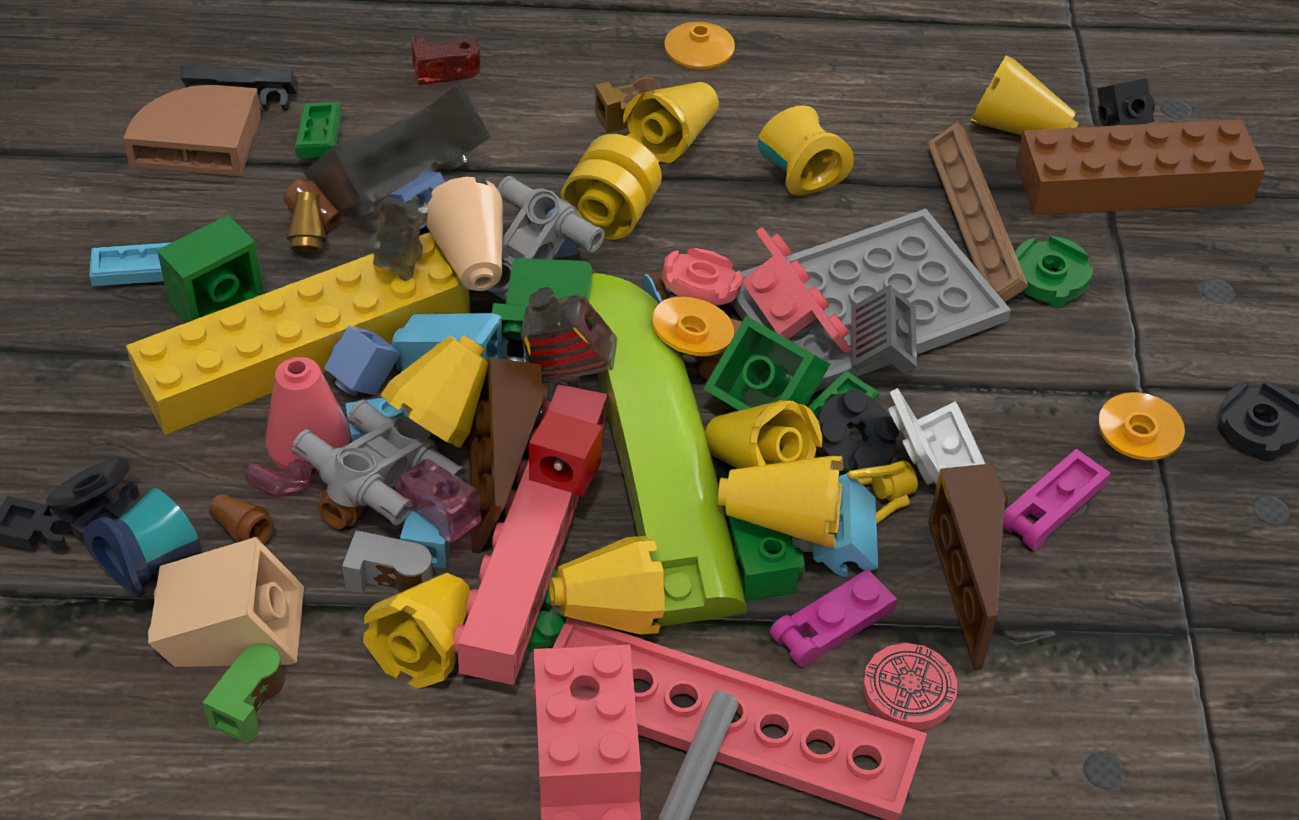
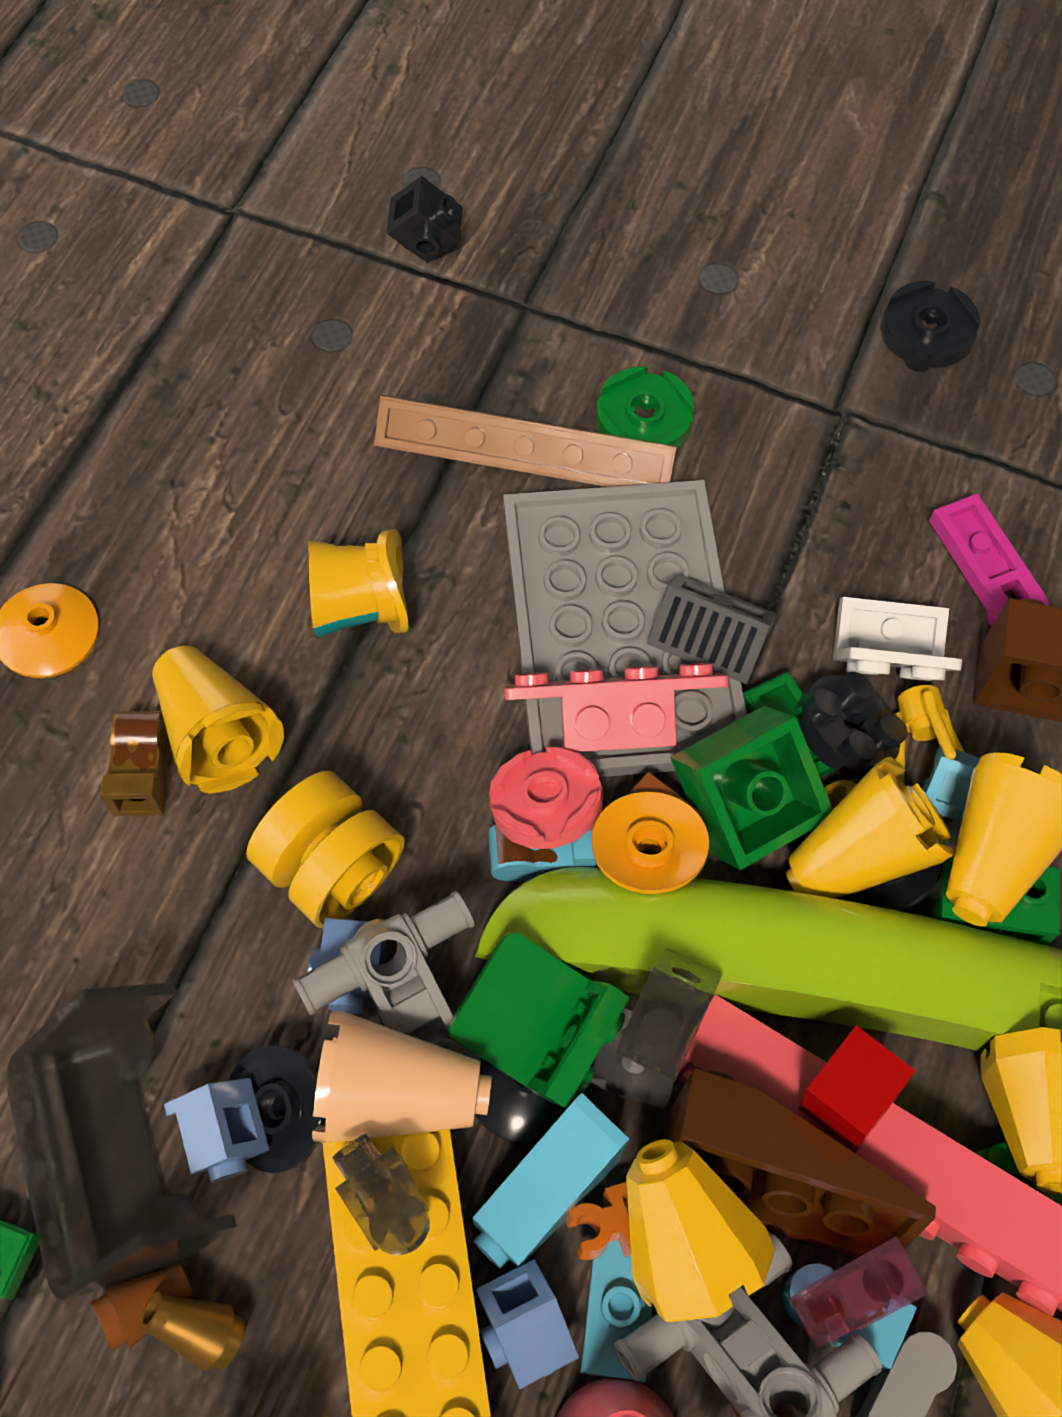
camera: 70 degrees left, 15 degrees up
(1021, 102) = (371, 320): yellow cone -> none
(1138, 167) = (522, 260): dark orange brick -> none
(1141, 426) = (916, 420): light orange dish -> none

